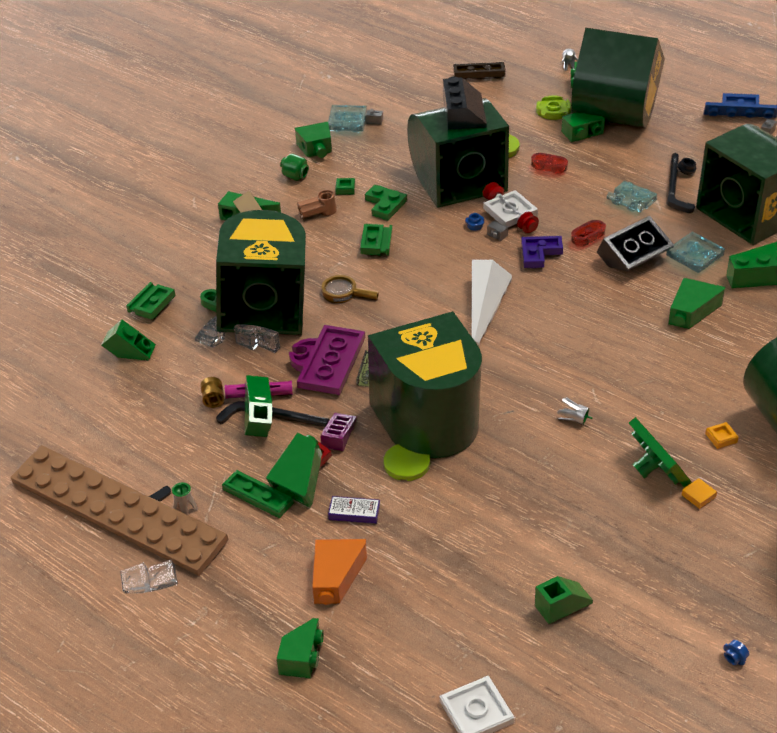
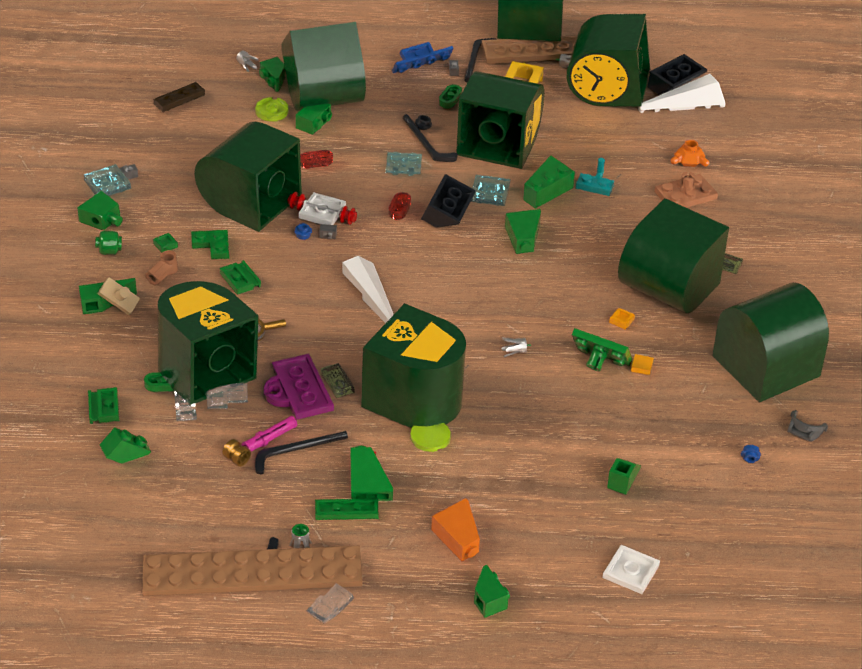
camera: 40 degrees left, 0 degrees up
(257, 406) = (290, 445): green slope -> none
(335, 435) = (364, 437): magenta slope -> none
(354, 509) = (428, 485): tile -> none
(462, 105) = (248, 135): black slope -> none
(537, 246) = (374, 234): dark purple plate -> none

